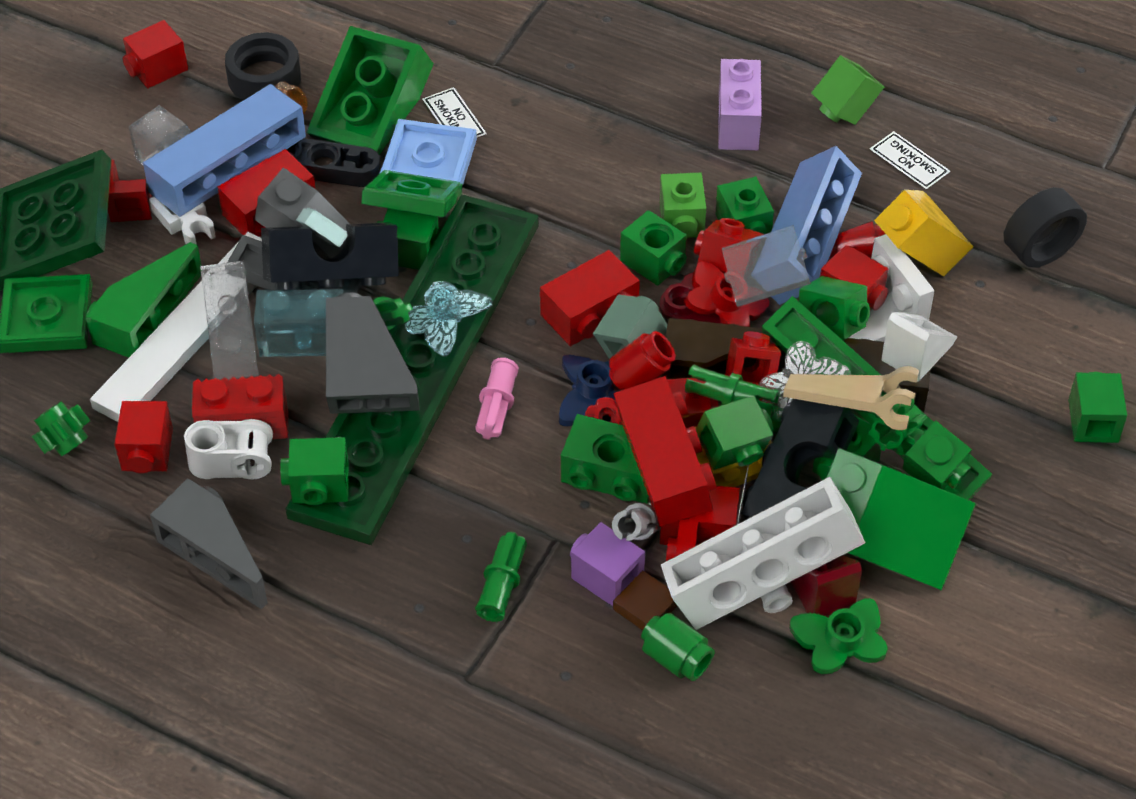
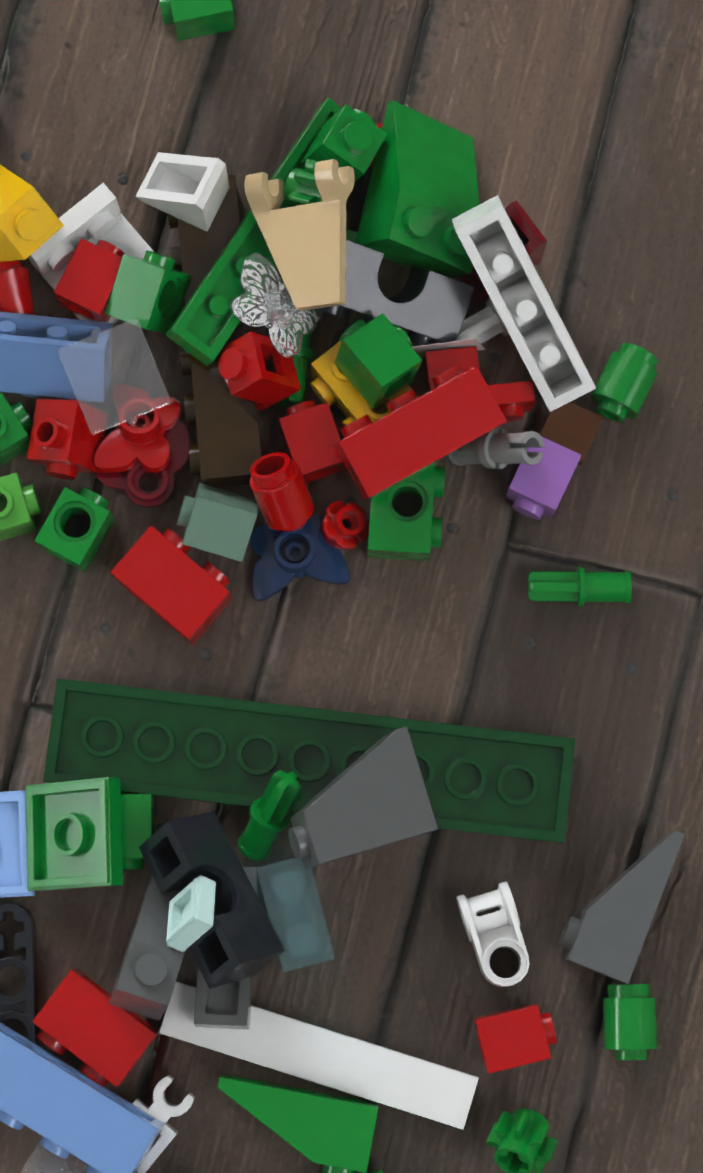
camera: 105 degrees left, 30 degrees up
(120, 525) = (629, 1021): none -> green brick
(229, 320) = (326, 995): clear tile -> none
(241, 400) = (443, 941): red brick -> none
(316, 470) = (527, 814): green brick -> none
(442, 312) = (247, 743): clear light blue animal -> none
(496, 398) = (343, 656): bright pink axle -> none
(729, 388) = (306, 380): green pin -> none
(841, 636) = (562, 225): green animal -> none

